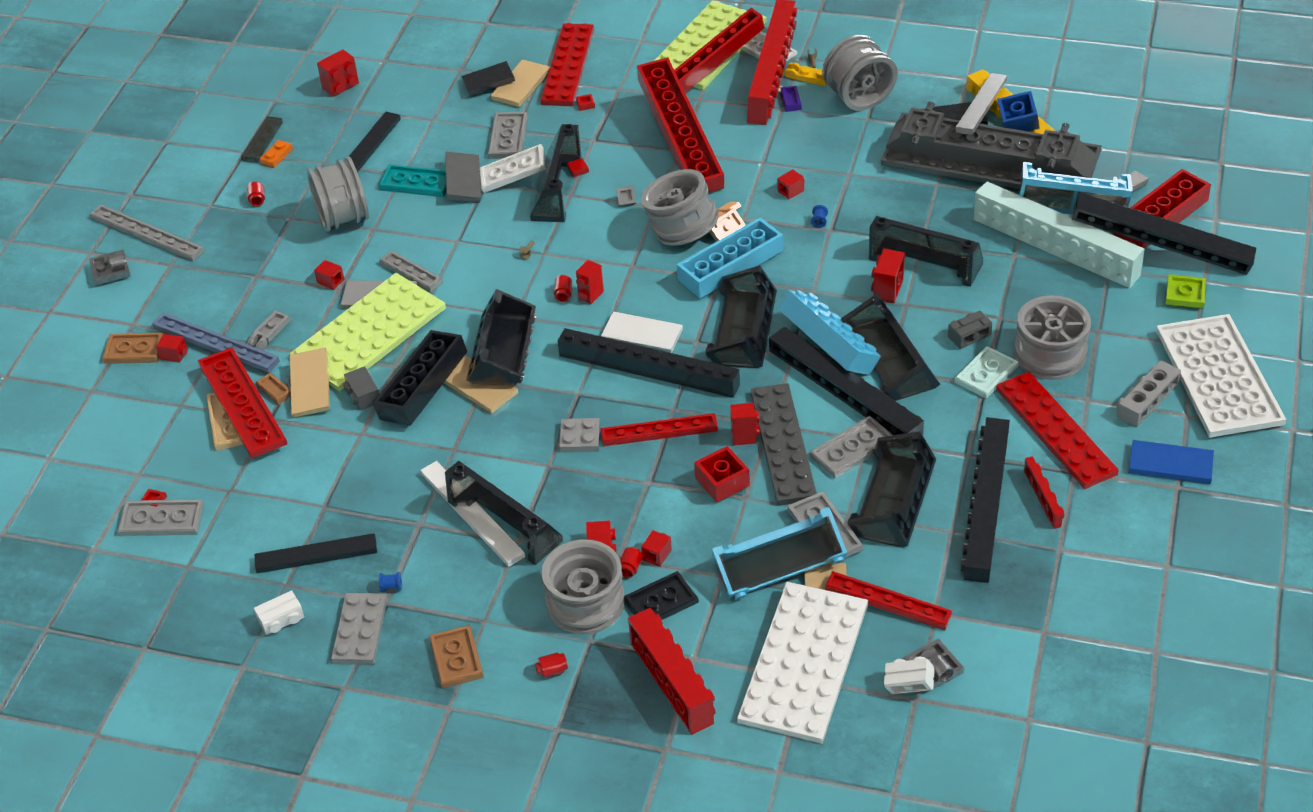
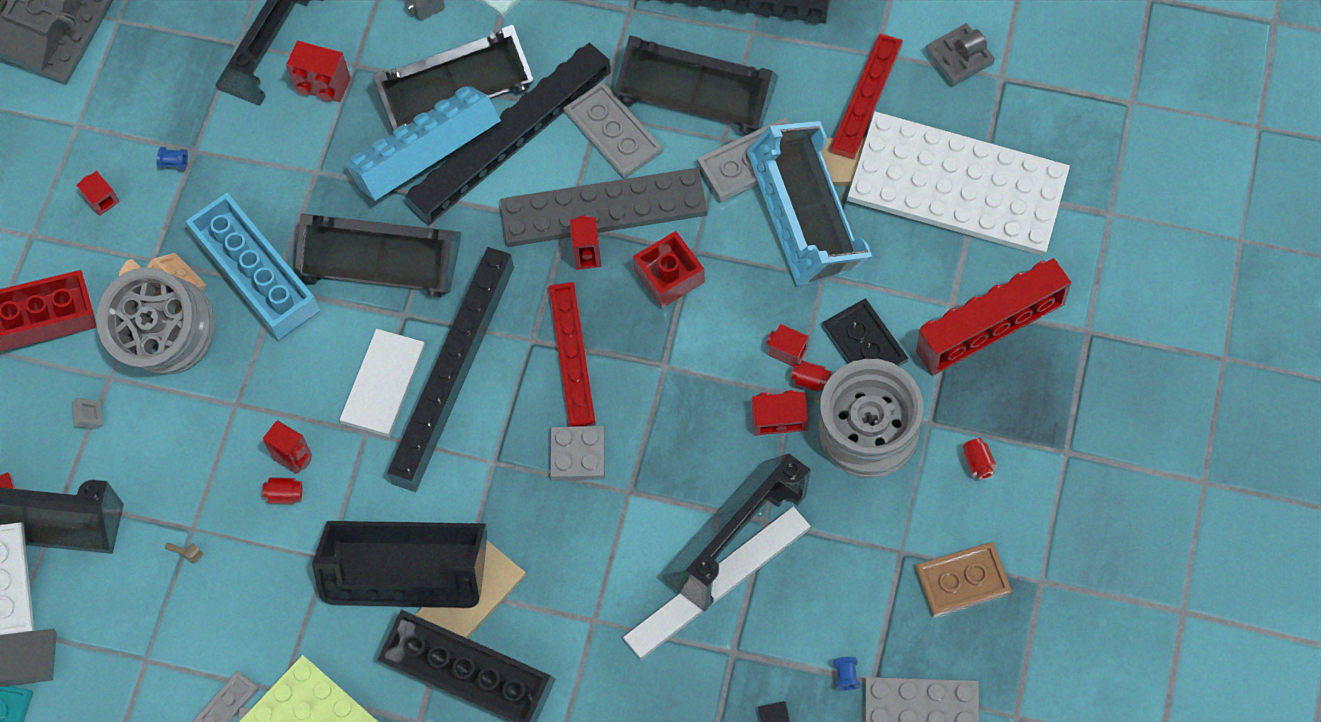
camera: 90 degrees left, 20 degrees up
(909, 675) = (987, 71): white brick -> none

